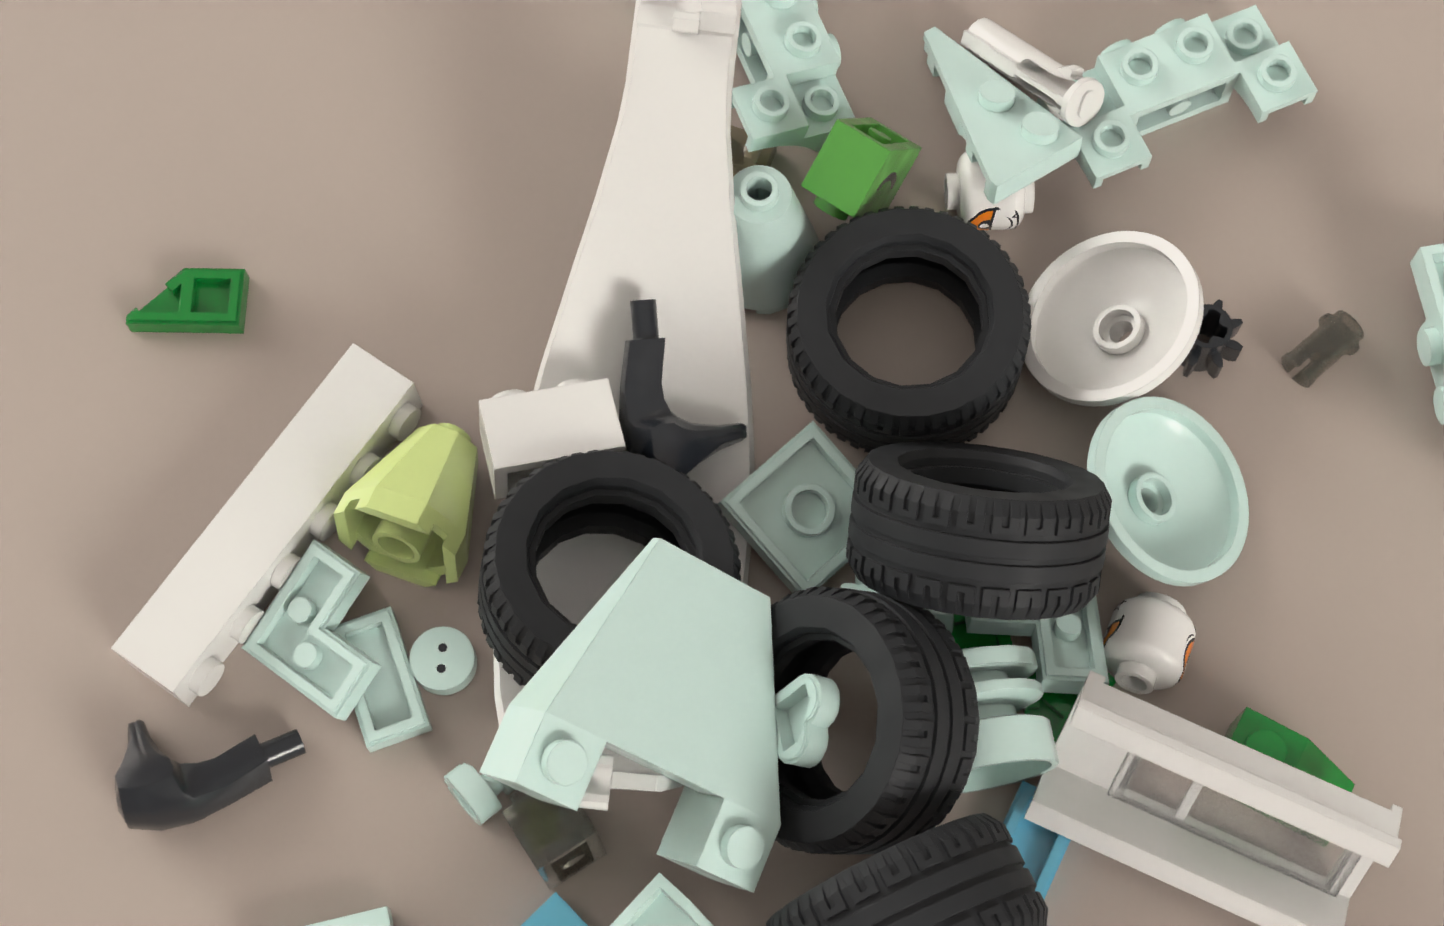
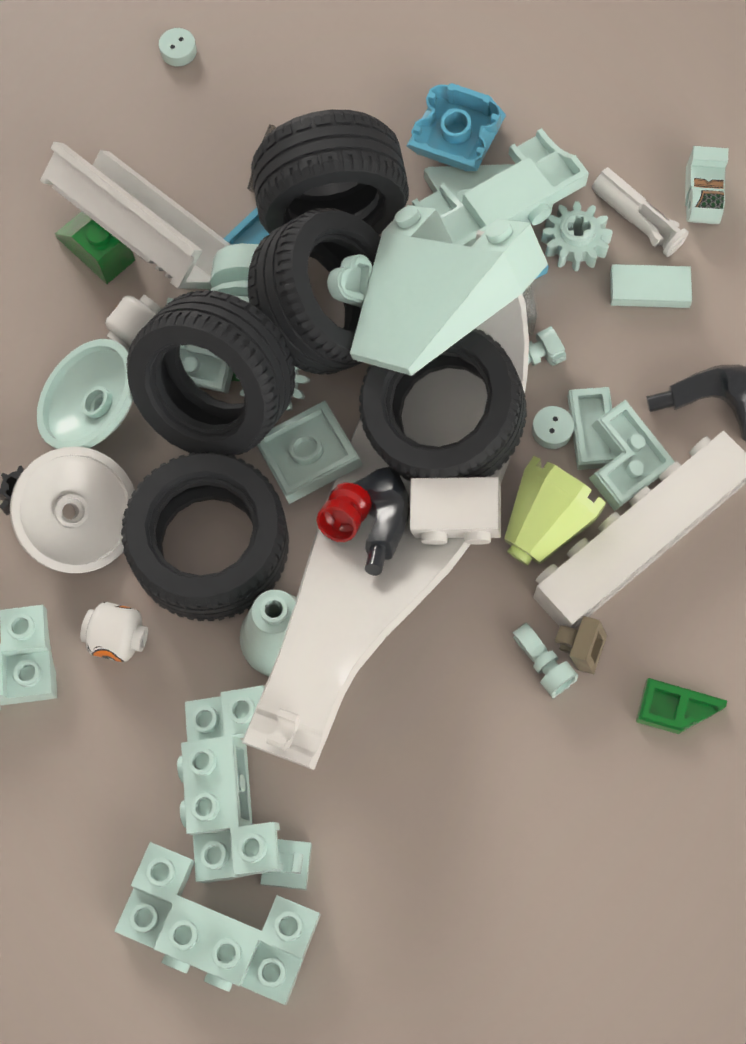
camera: 165 degrees left, 0 degrees up
(334, 337) = (583, 644): none -> dark tan tile
(364, 289) = (557, 676): none -> light aqua piece
(712, 389) = (344, 512): none -> red wheel
(859, 168) = (195, 650): bright green brick -> none
(1001, 125) = (87, 659): light aqua wing -> none
(1036, 72) = (52, 704): white piece -> none

